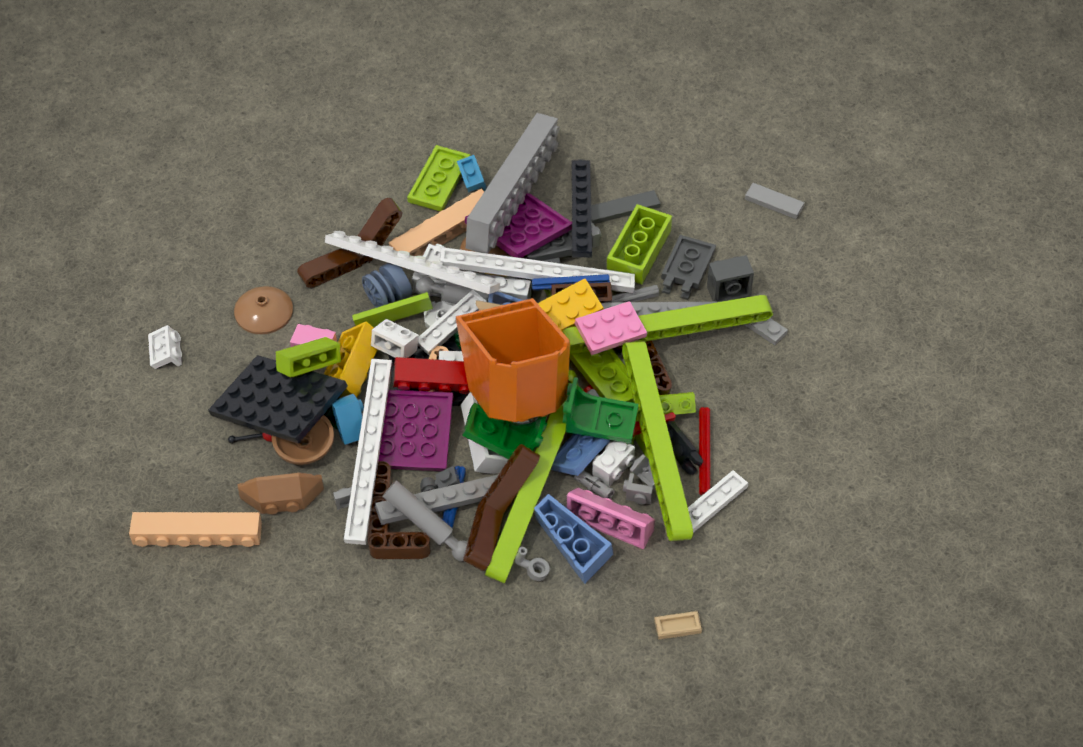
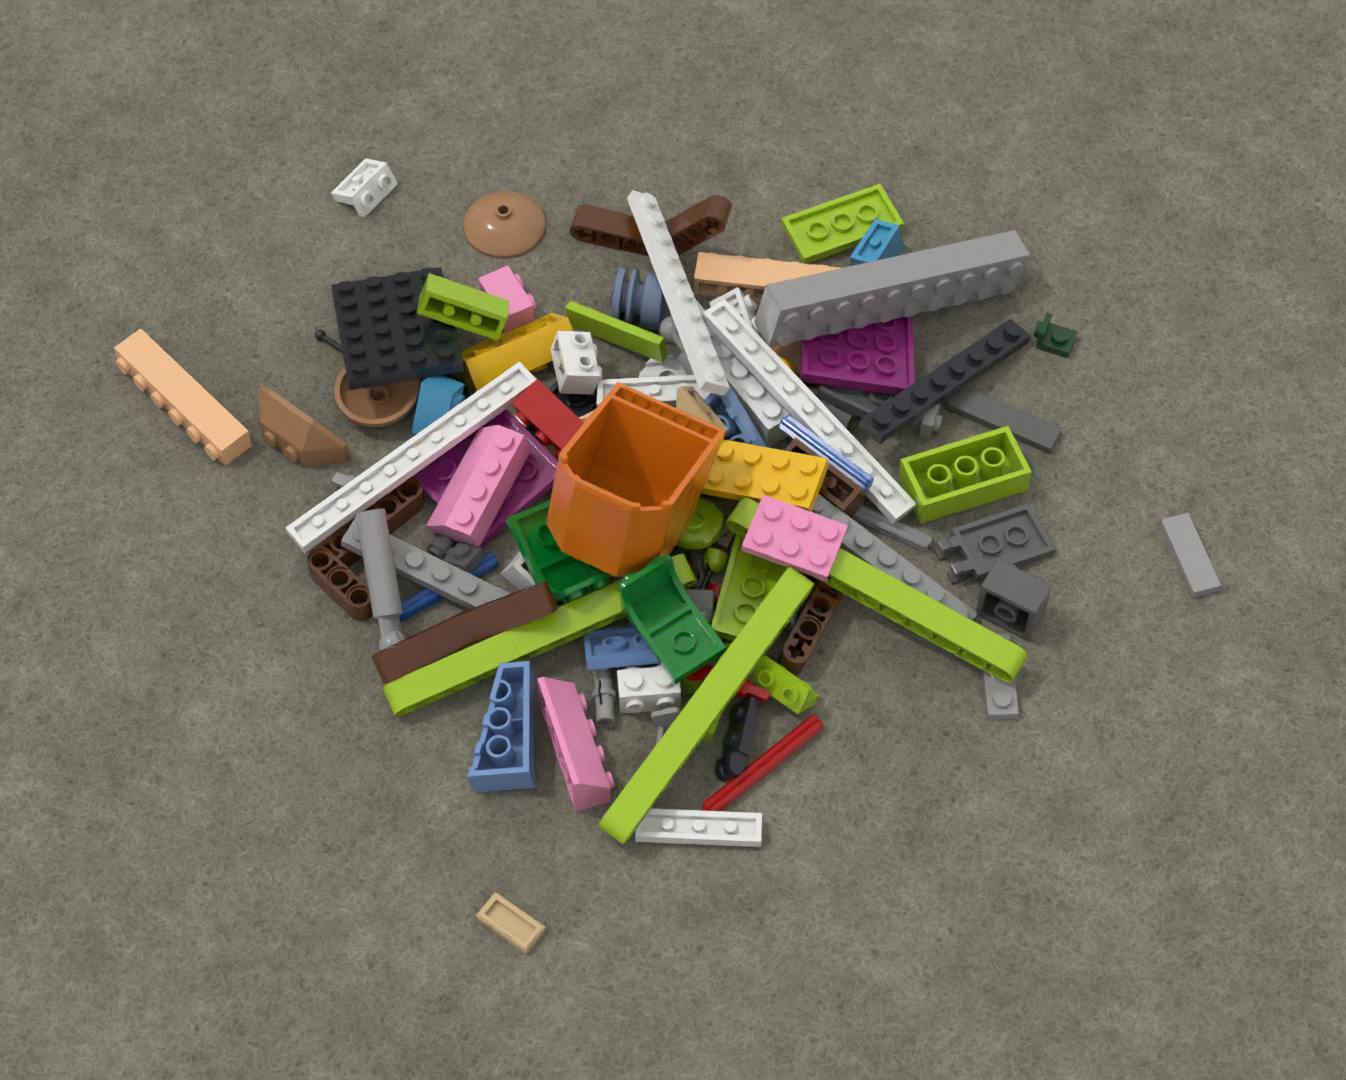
camera: 45 degrees right, 5 degrees up
(416, 436) = (480, 485): none -> bright pink slope
(536, 563) = (437, 723): light grey plate -> none
(601, 154) = (1054, 338): none -> dark green bracket
(638, 493) = (633, 747): light grey bracket -> none

